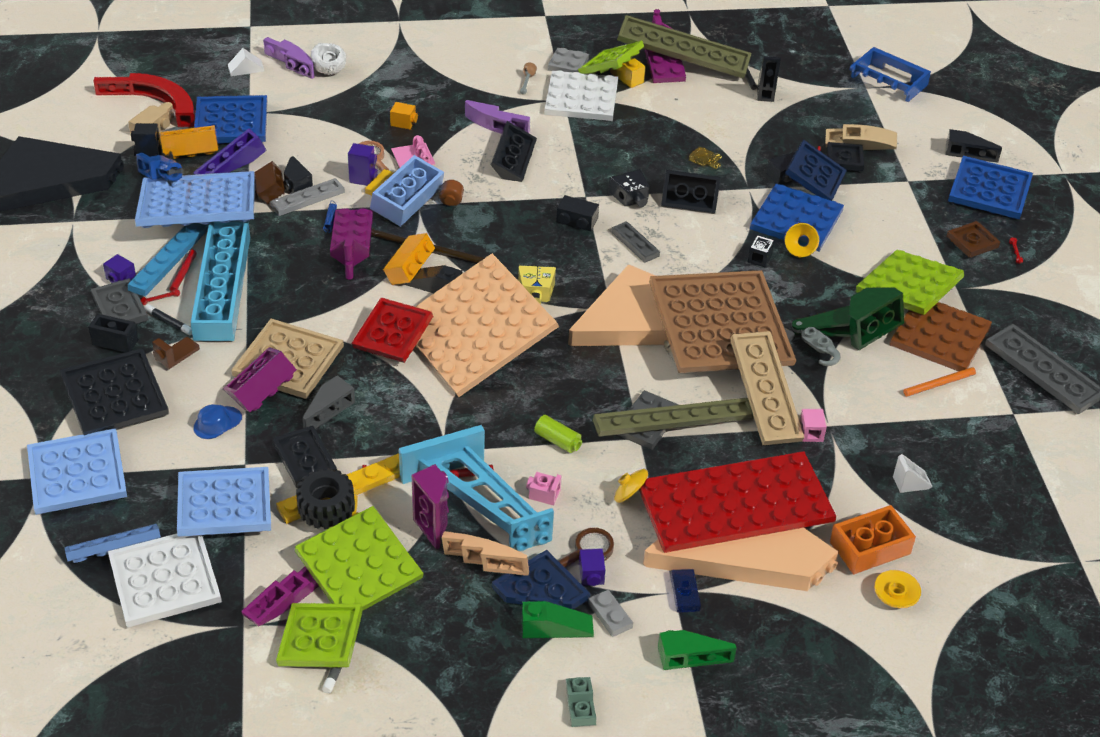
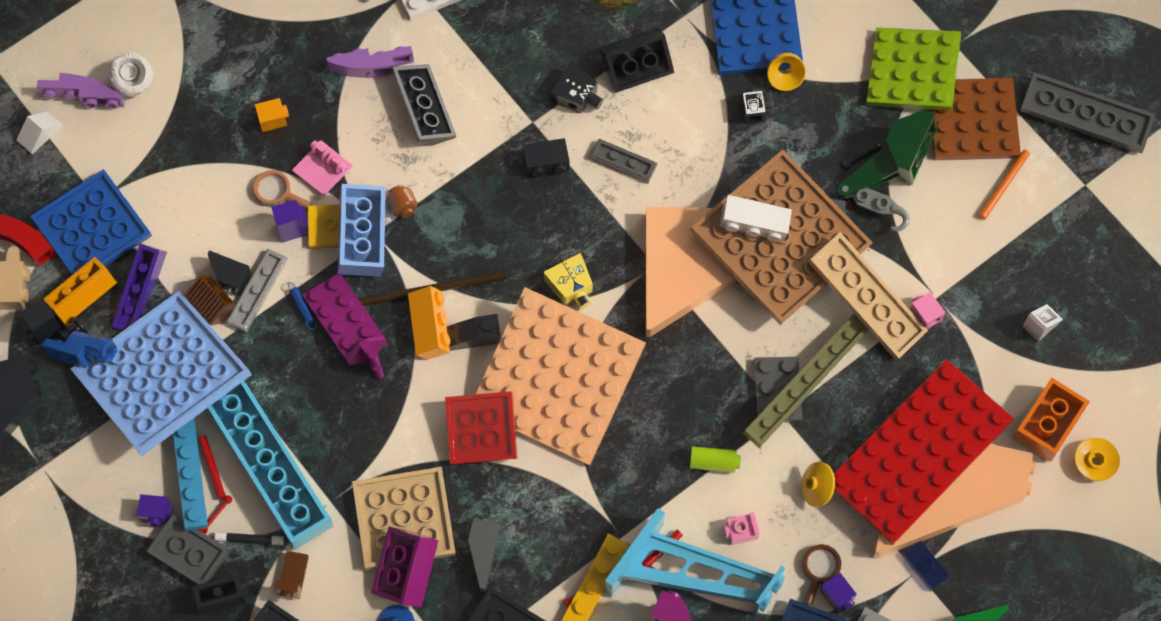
camera: 30 degrees left, 25 degrees up
(705, 291) = (755, 218): none -> white brick

